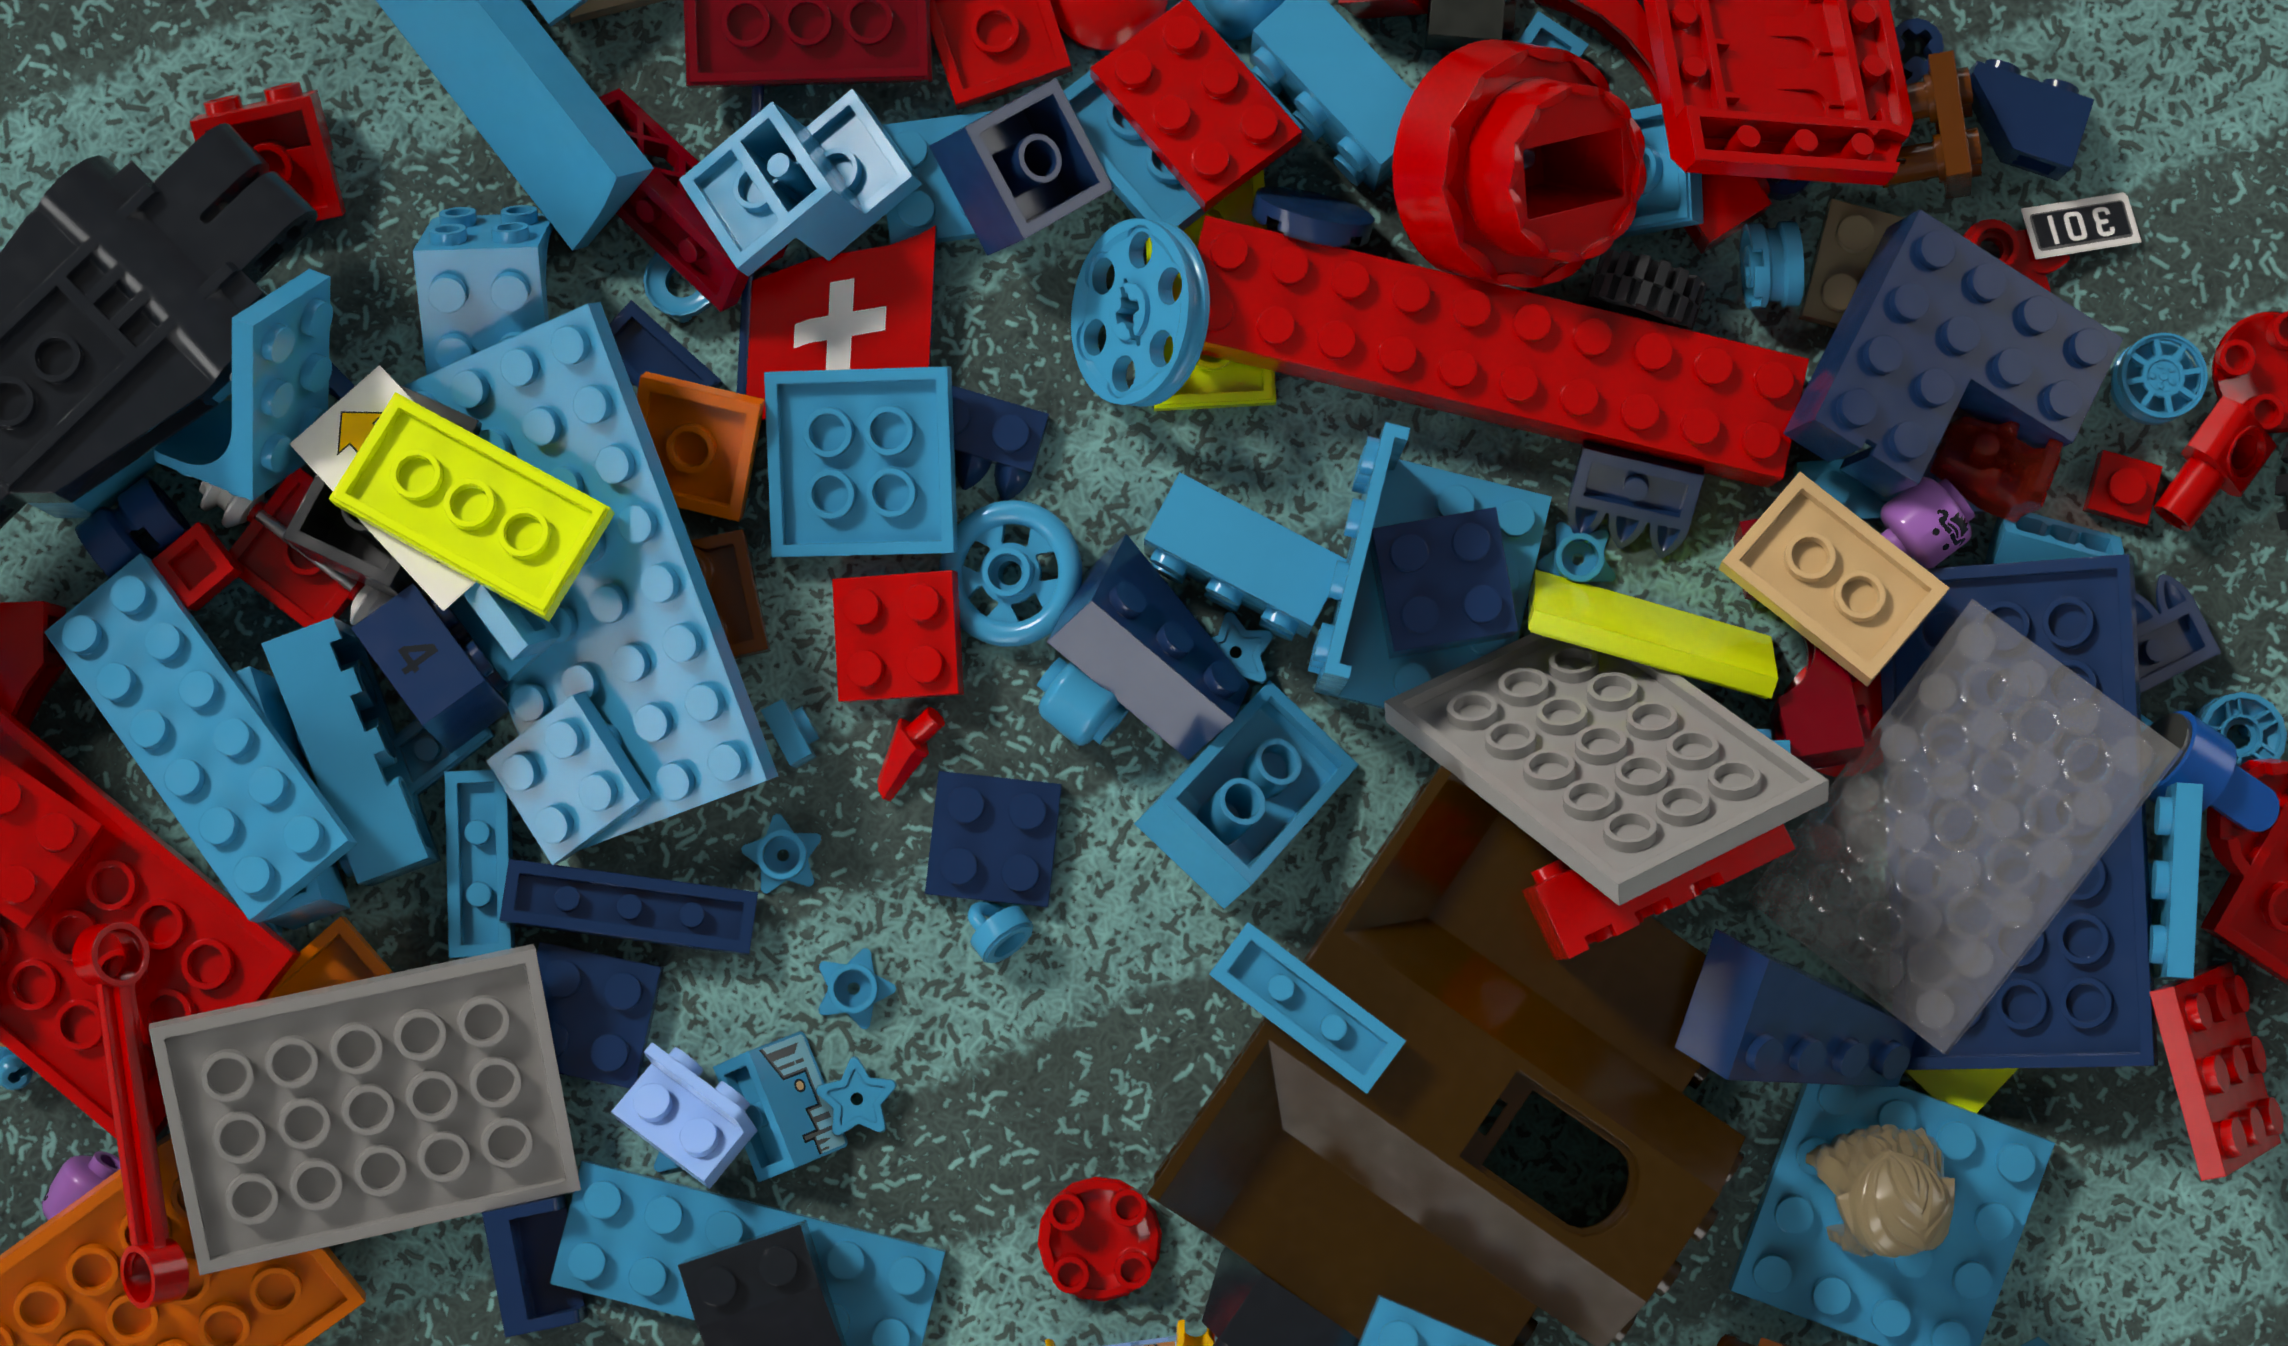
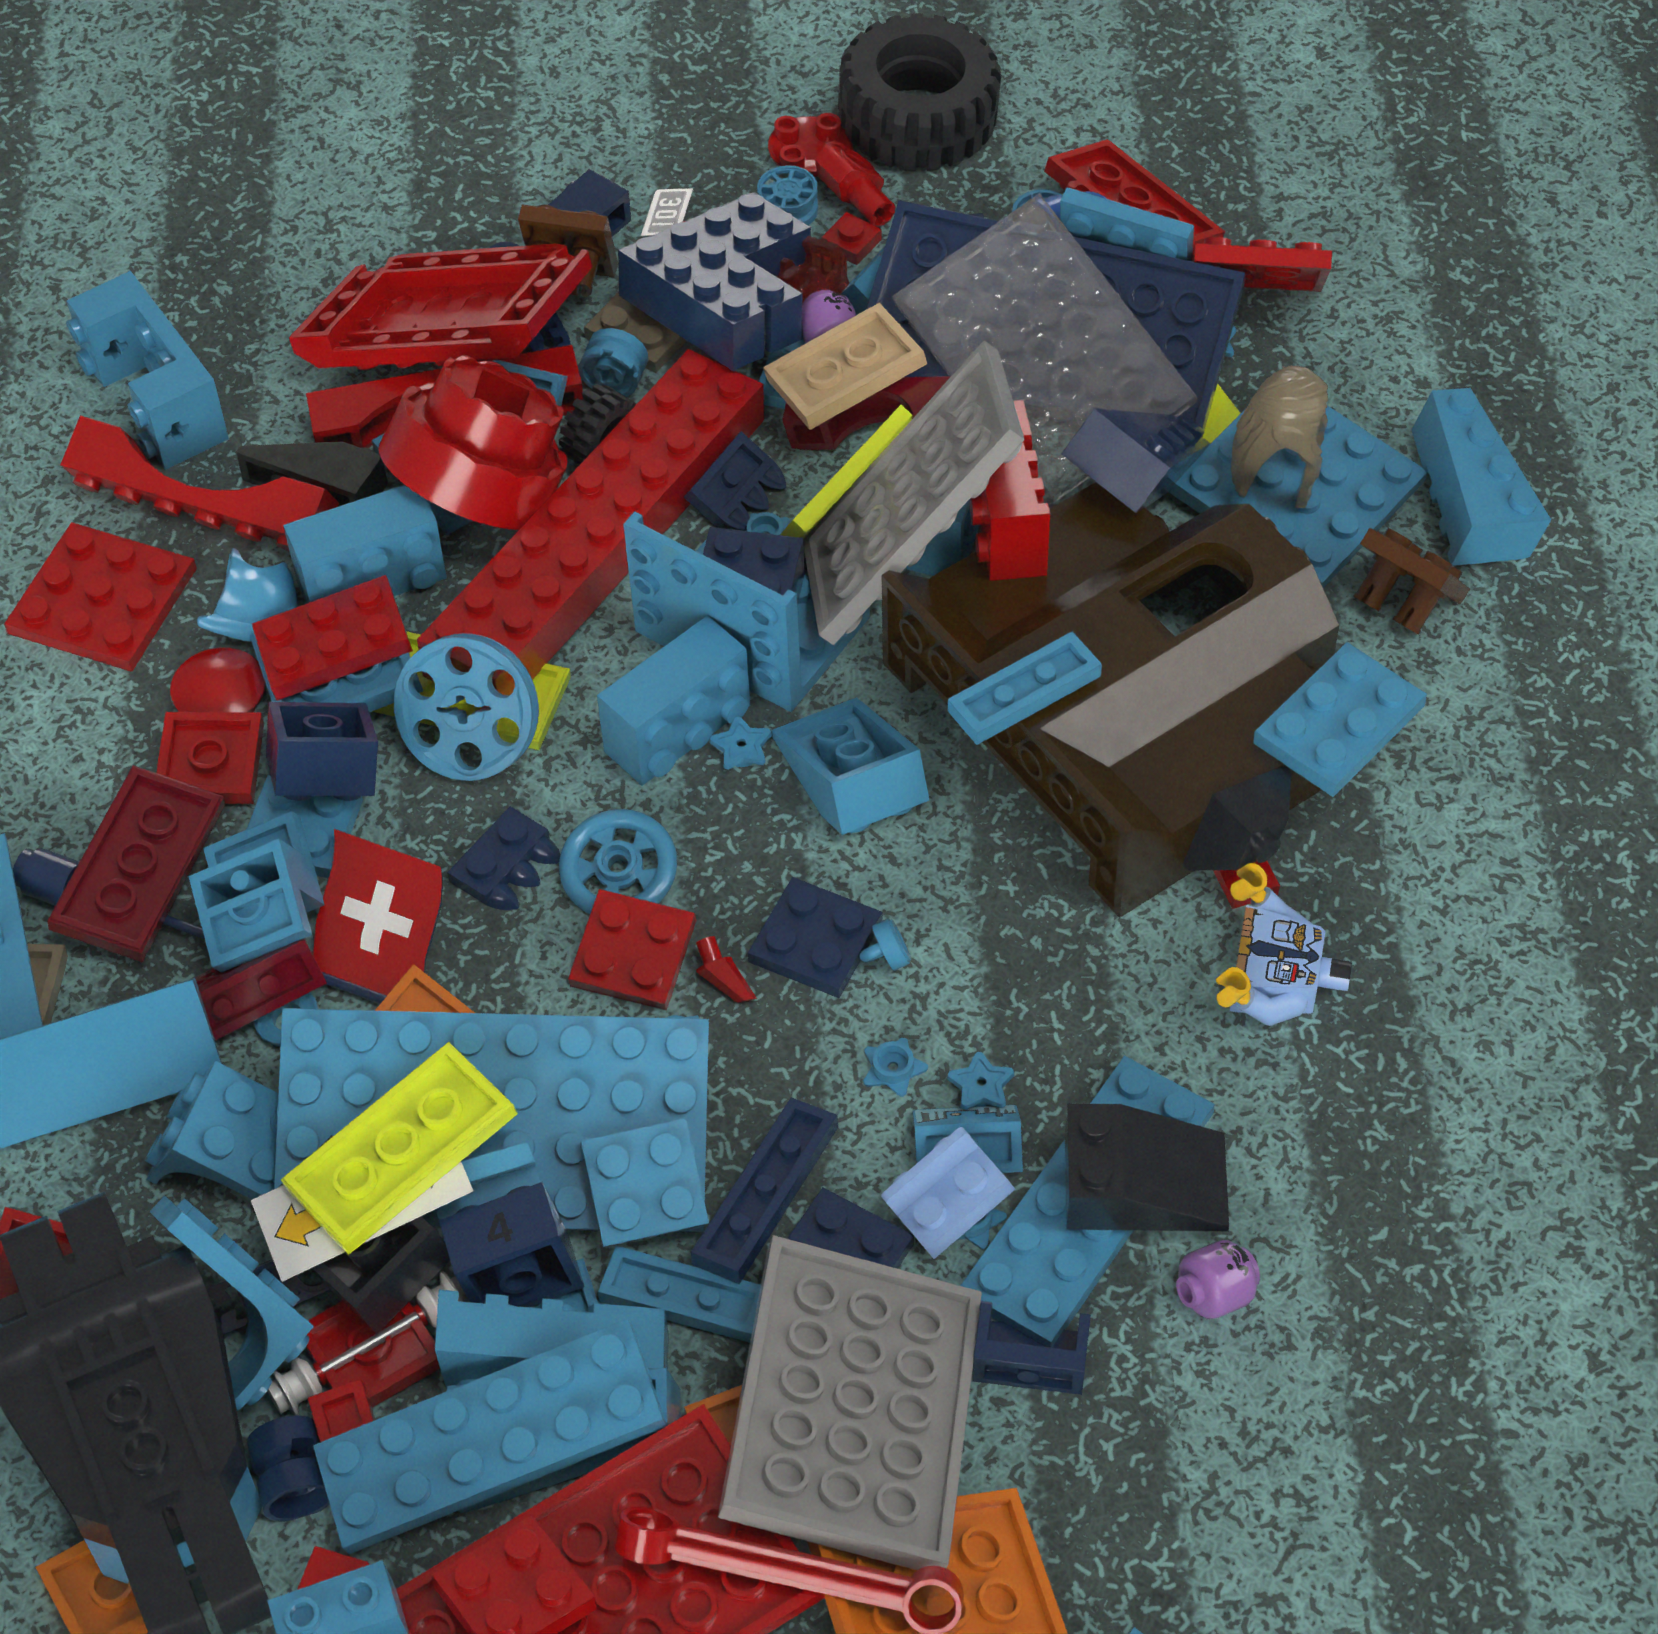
camera: 70 degrees left, 30 degrees down
(765, 853) = (767, 1071): dark azure plate -> none
(861, 462) = (488, 925): dark azure plate -> none
(1078, 705) = (735, 838): dark azure head -> none
(1099, 1239) = (1150, 952): red dish -> none
(1149, 650) = (719, 777): dark blue wedge -> none
(1313, 216) = (447, 591): dark blue tile -> none

